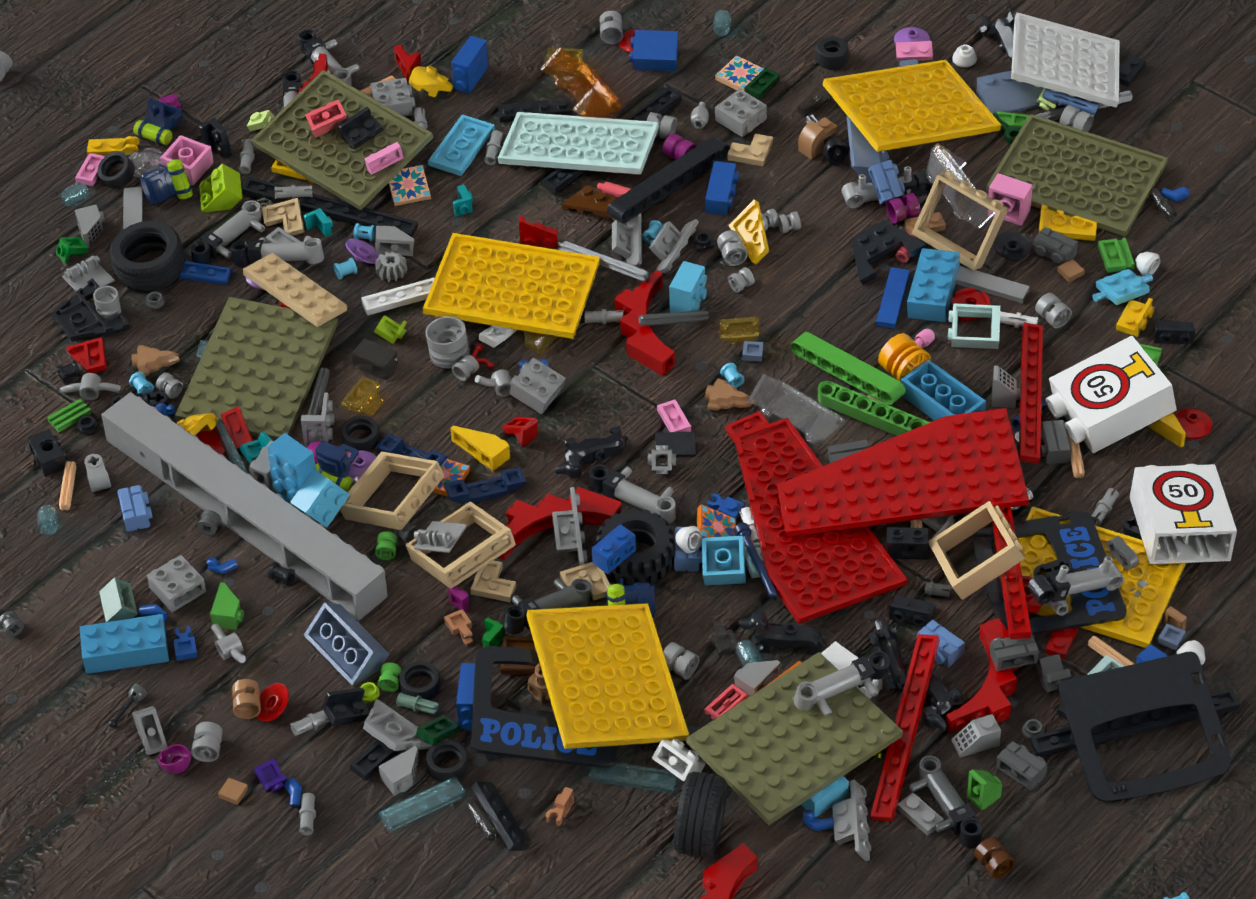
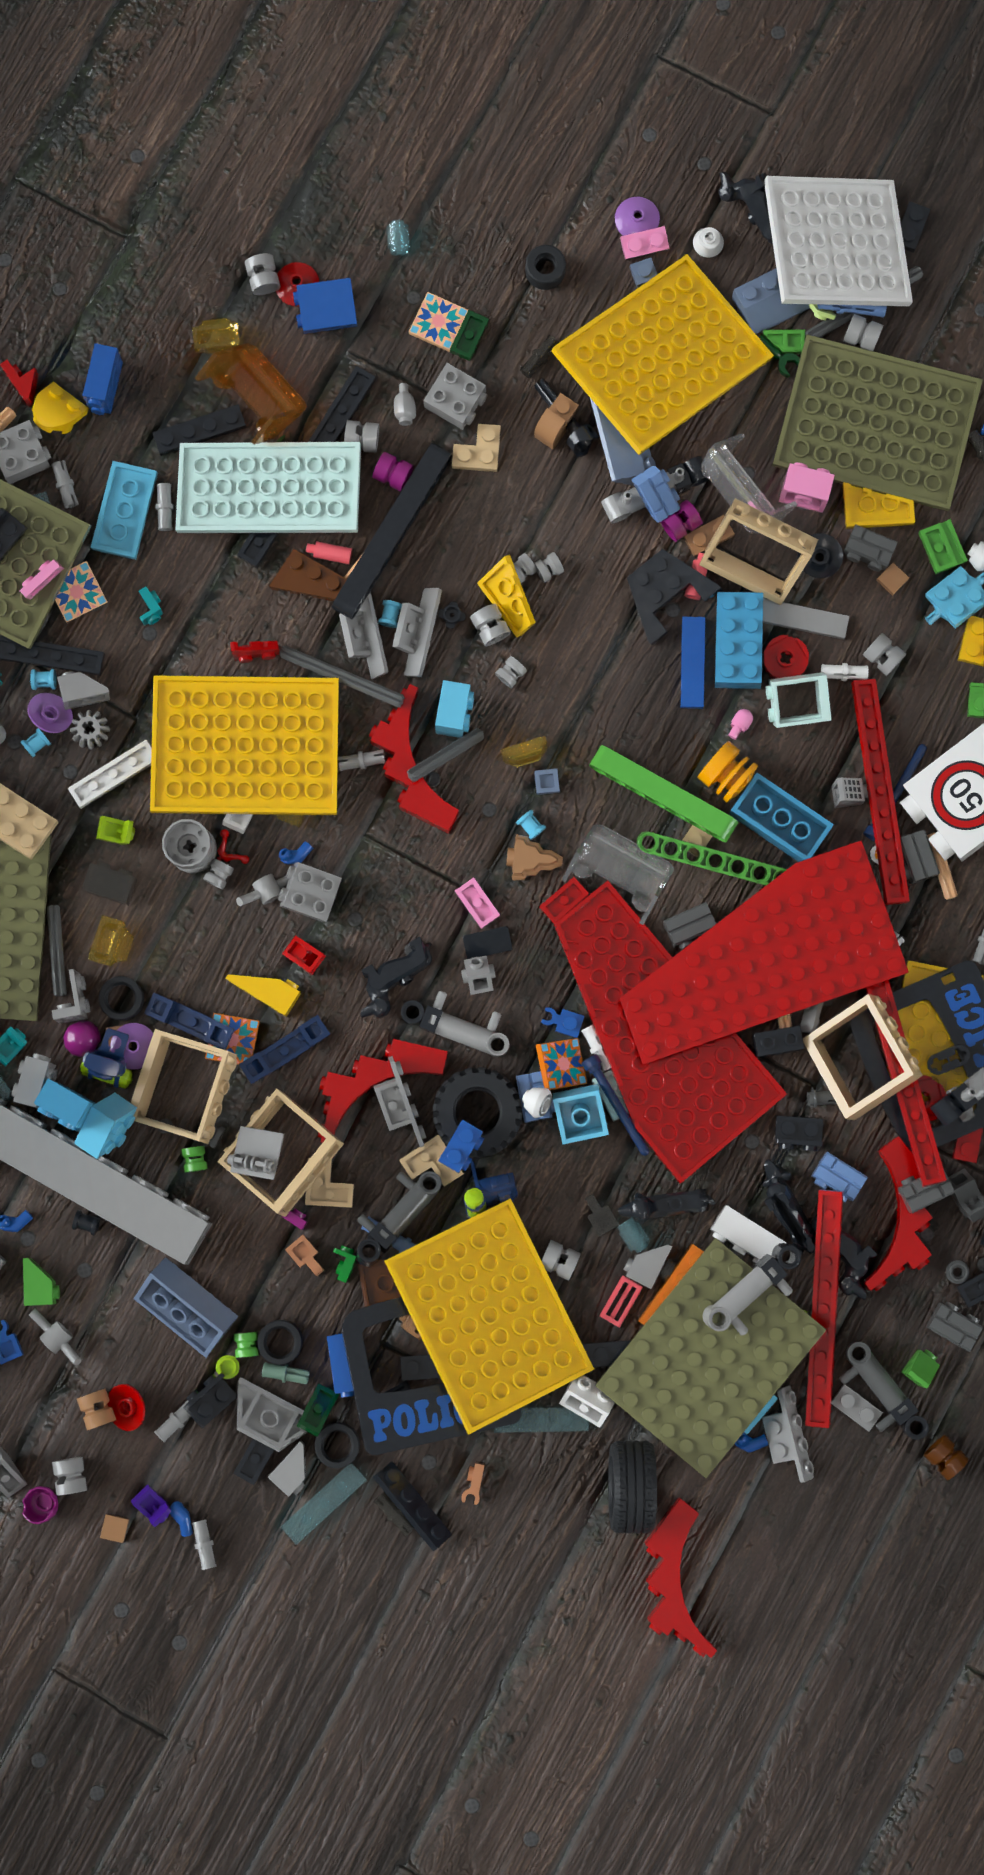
camera: 15 degrees left, 35 degrees up
(721, 188) = (457, 525): blue brick -> none
(977, 736) = (899, 1297): light grey slope -> none

